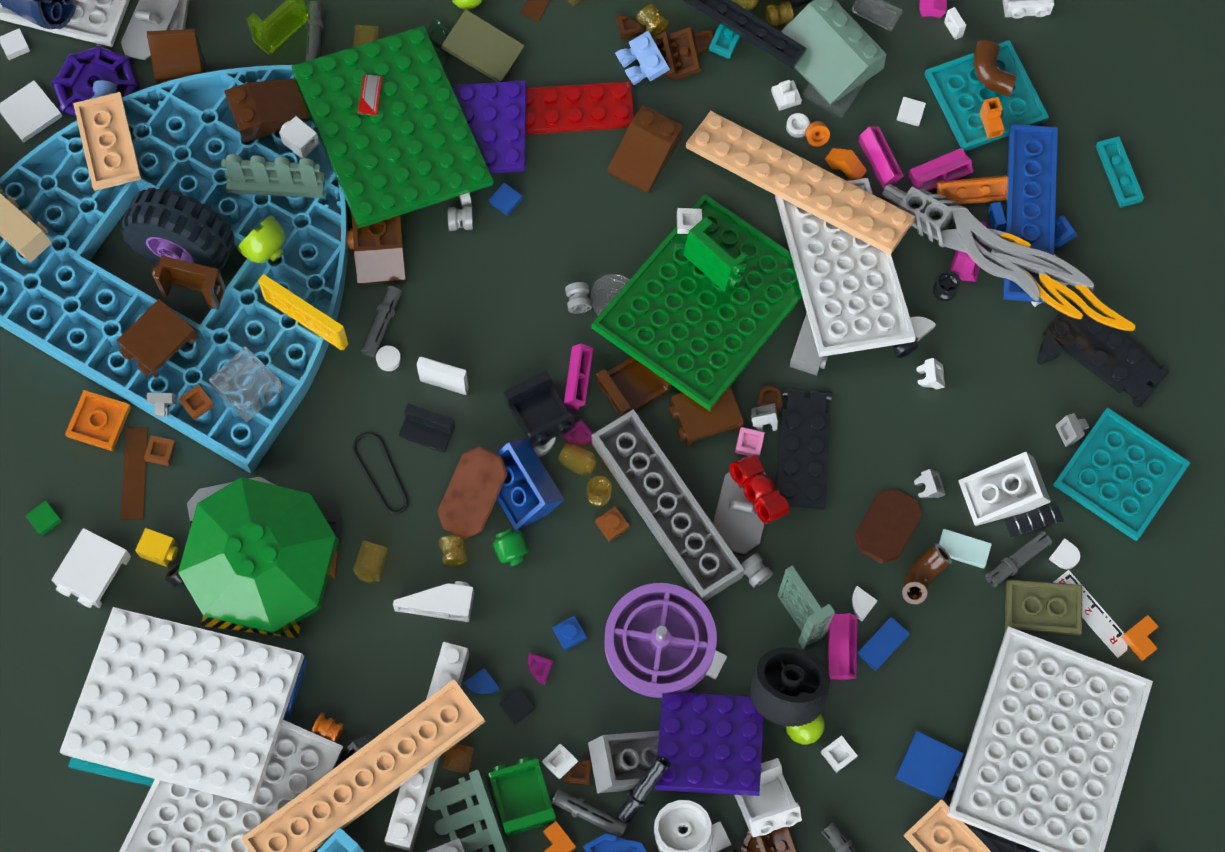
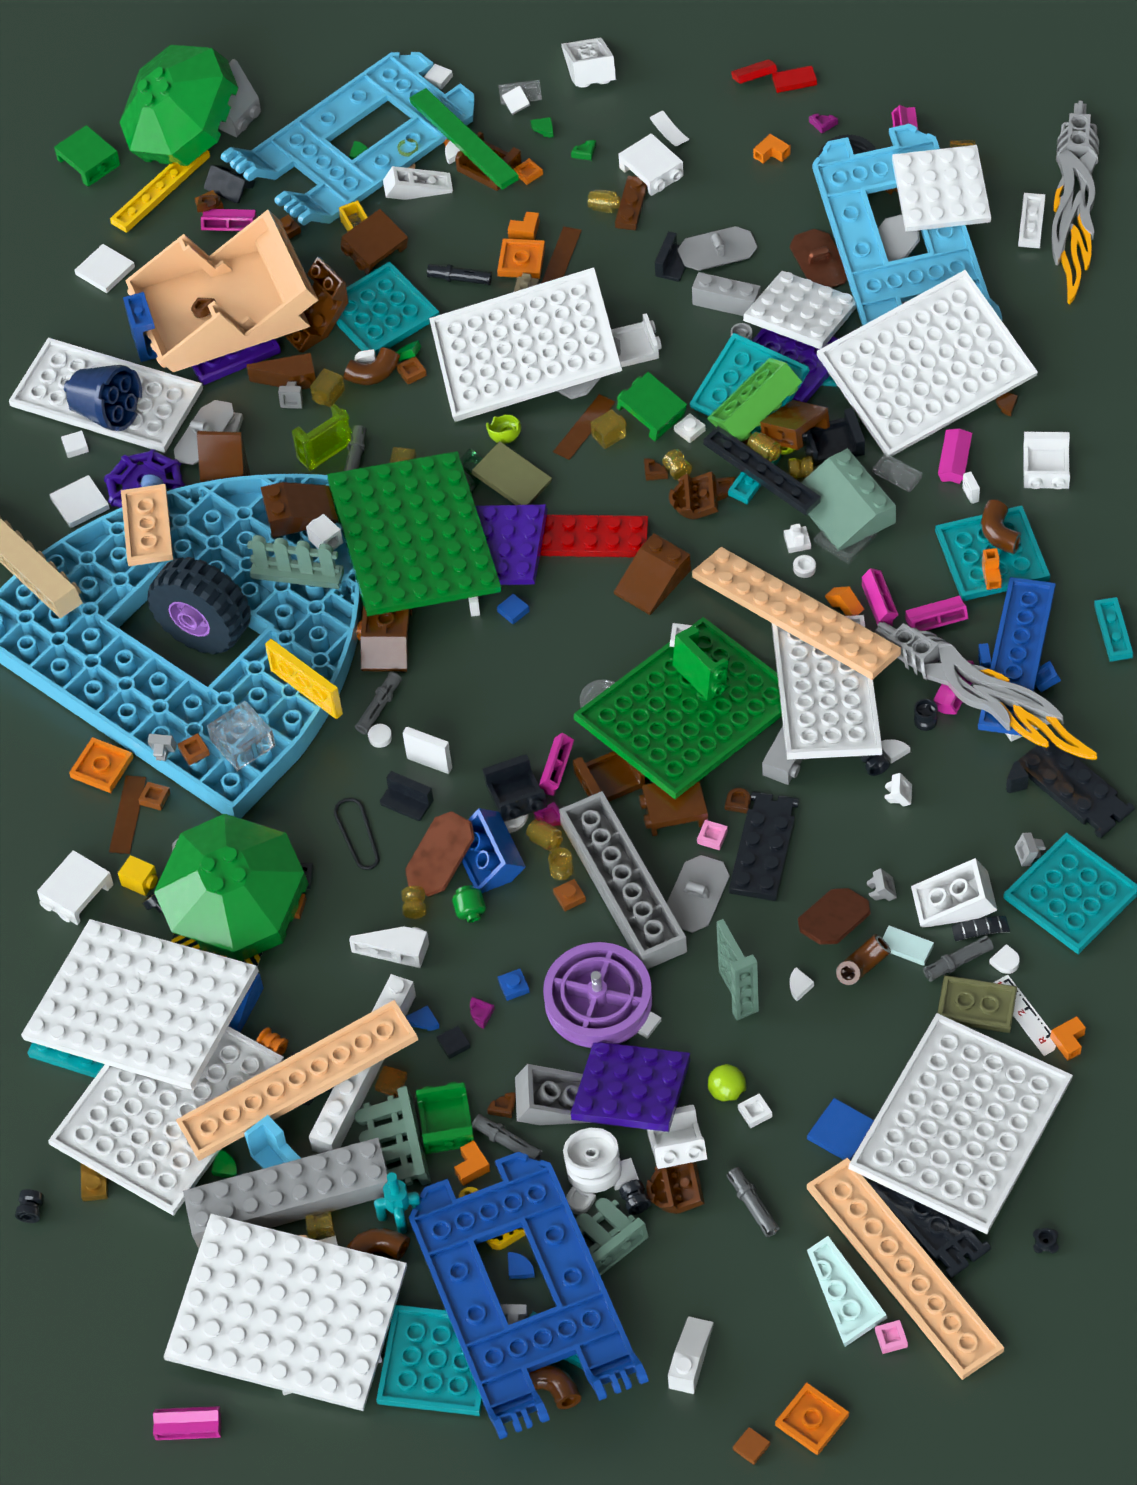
camera: 15 degrees right, 15 degrees down
(43, 518) = (37, 843): green tile -> none
(155, 338) = (164, 691): reddish brown panel -> none
(190, 276) = (203, 640): reddish brown panel -> none
(264, 242) = (276, 618): lime cylinder -> none
(370, 94) = (396, 503): sticker -> none
(371, 562) = (335, 905): clear yellow brick -> none
(460, 218) = (466, 620): light grey wheel -> none
(559, 761) = (486, 1091): white plate -> none
(578, 298) = (567, 696): light grey wheel -> none
(638, 797) = (554, 1125): black pin -> none
(647, 53) = (667, 493): light blue plate -> none
(756, 570) = (698, 942): light grey wheel -> none
(759, 489) = (713, 873): red piece -> none
(764, 415) = (735, 811): light grey tile -> none
(789, 686) = (713, 1041): black wheel -> none
(817, 133) = (821, 573): orange tile -> none
(842, 647) = (773, 1018): dark pink piece -> none
(883, 643) = (814, 1021): blue tile -> none
(911, 111) = (916, 562): white tile -> none
(975, 189) = (966, 633): orange tile -> none

